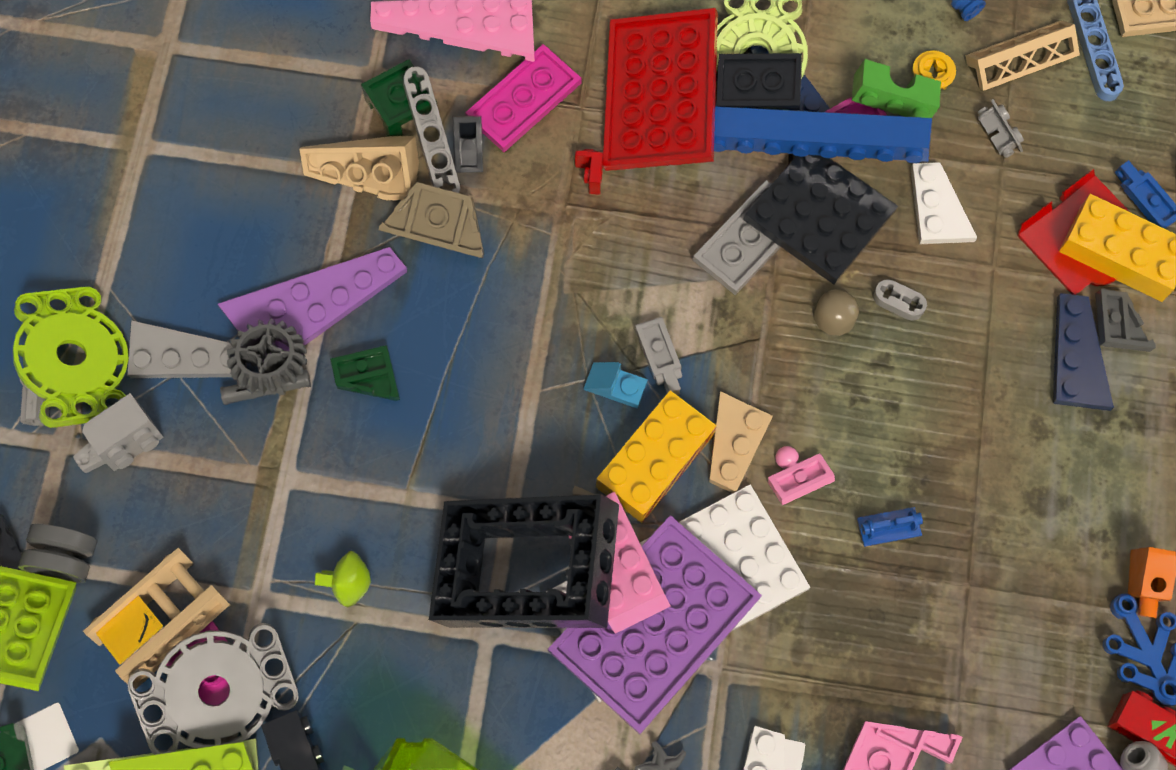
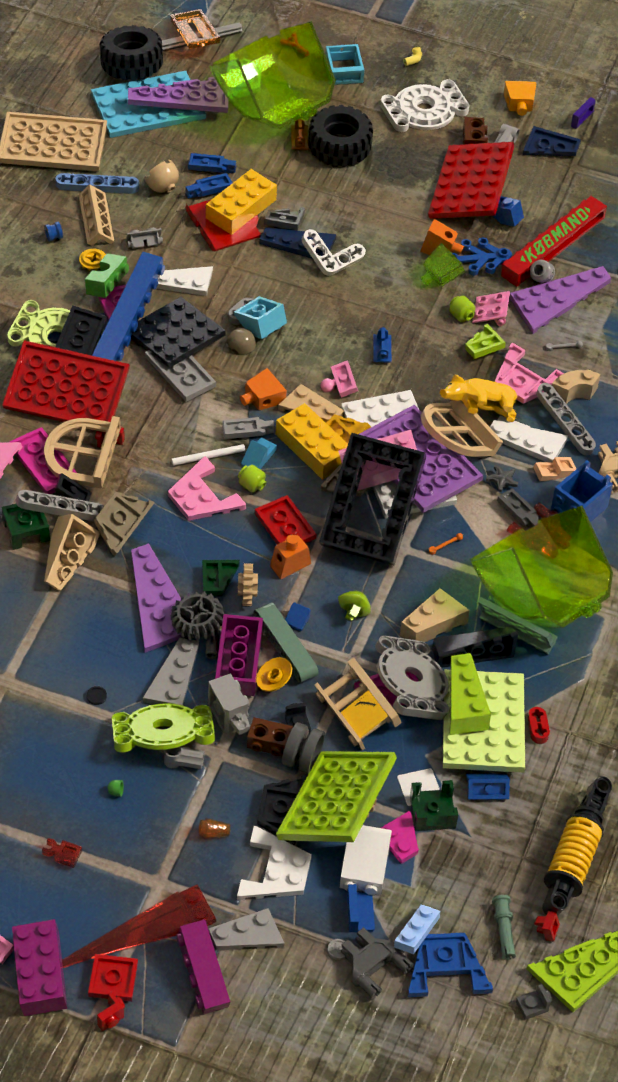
camera: 80 degrees left, 20 degrees down
(94, 503) = (271, 734): none -> reddish brown brick
(127, 538) = (296, 713): none -> black bracket
(133, 262) = (96, 695): none -> black piece
(196, 488) = (274, 674): none -> yellow dish
(217, 430) = (240, 650): none -> magenta brick
(261, 493) = (286, 642): none -> sand green beam
(315, 501) = (298, 616): none -> blue slope
(342, 415) = (247, 584): none -> tan gear
(346, 704) = (433, 617): none -> tan wedge
(417, 467) = (290, 556): none -> orange torso
(486, 448) = (284, 519): none -> red plate
(493, 681) = (432, 550): none -> orange hinge
(512, 312) = (195, 497): none -> bright pink wing
(541, 166) = (104, 454): none -> tan window
(558, 382) = (252, 478): none -> lime head
(597, 313) = (209, 454): none -> white bar
(689, 499) = (346, 426): none -> yellow wing
(739, 362) = (263, 391): none -> orange torso
(757, 699) = (470, 423): none -> tan window
(816, 704) = (483, 395): none -> yellow animal
(888, 327) = (261, 316): none -> medium azure slope
(951, 690) = (484, 343): none -> lime wing
(1015, 640) = (462, 308): none -> lime head
(1034, 689) = (492, 308): none -> bright pink hinge
(1053, 414) = (332, 260): none -> white beam
(1094, 588) = (441, 267): none -> clear neon green torso
(1133, 124) = (163, 177): none -> tan cylinder

